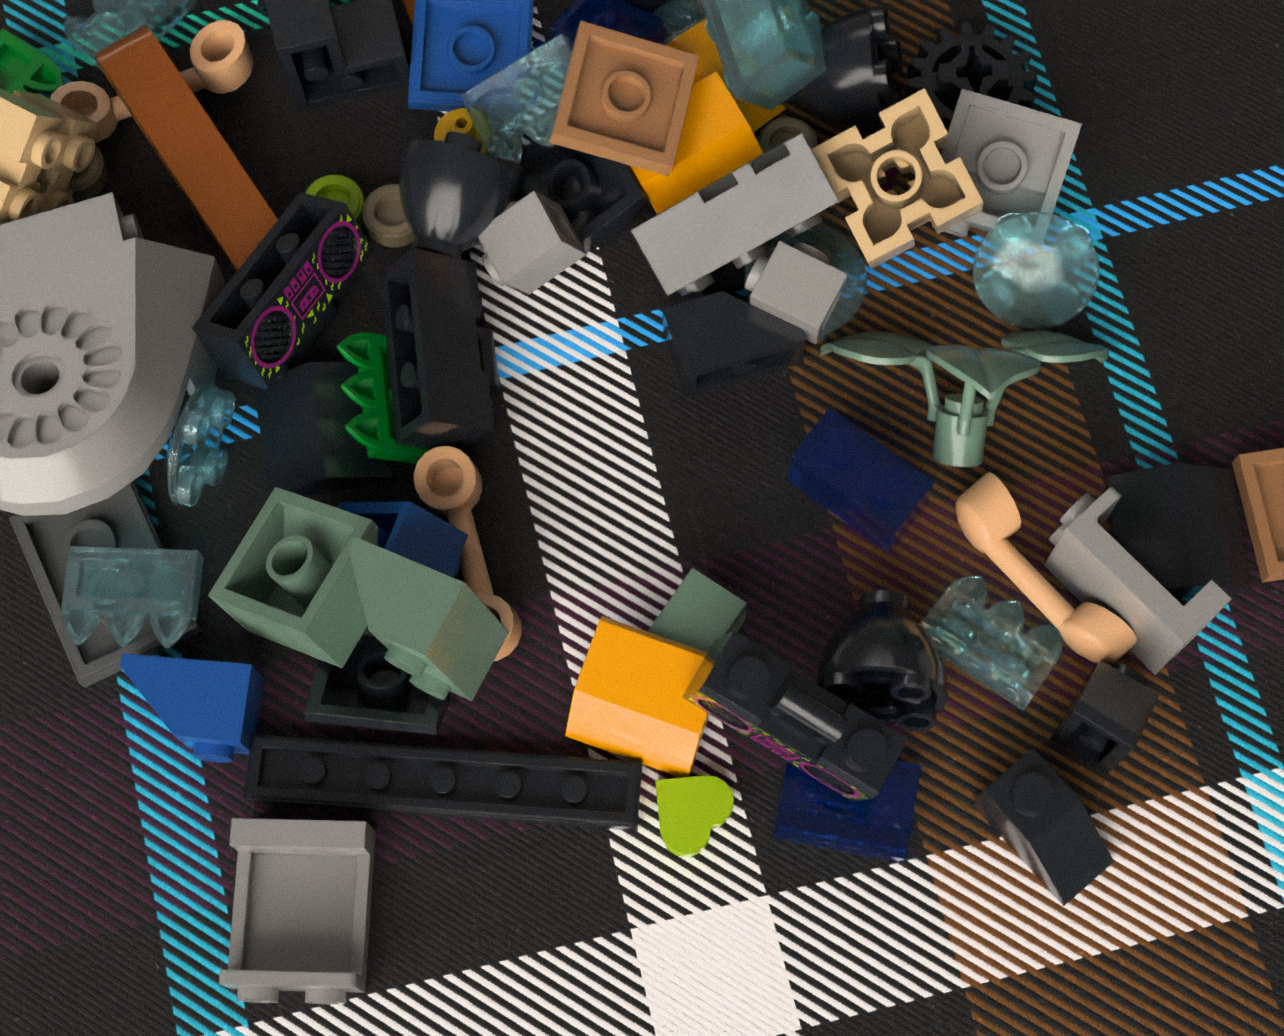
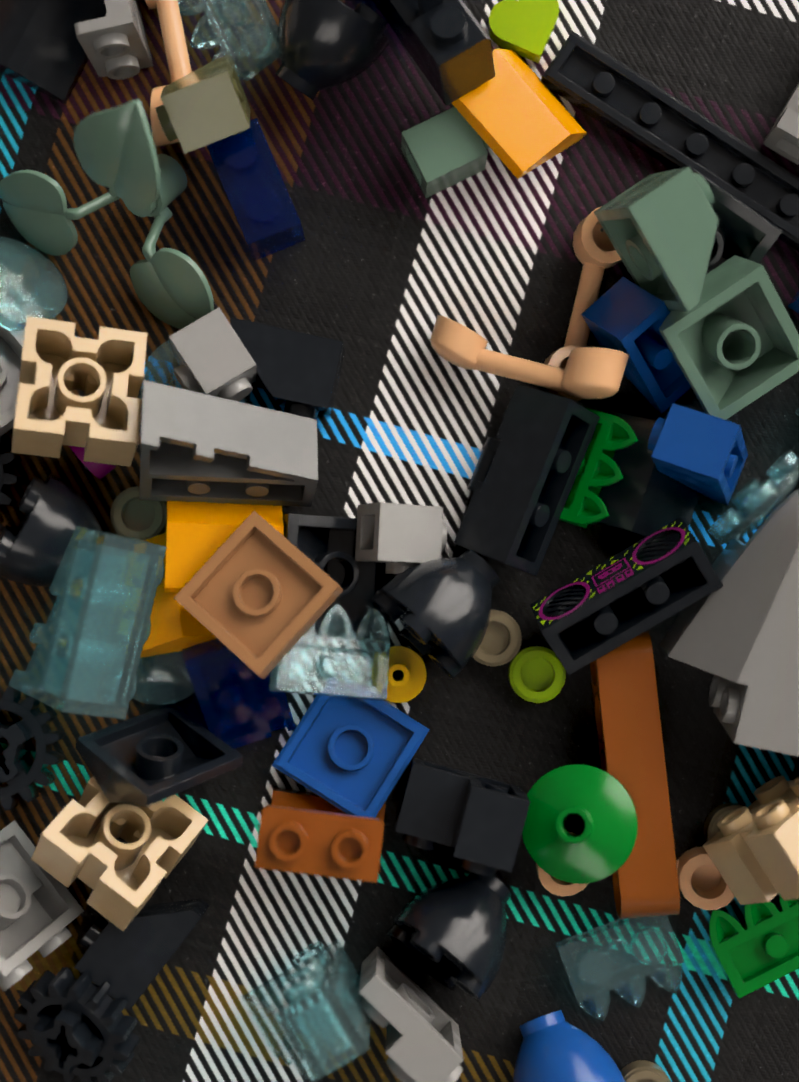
camera: 155 degrees left, 15 degrees up
(222, 99) = (608, 819): none -> green dish
(279, 451) = (699, 451): none -> blue slope
(428, 469) = (588, 373): none -> light nougat piece
(949, 514) = (204, 106): none -> olive slope

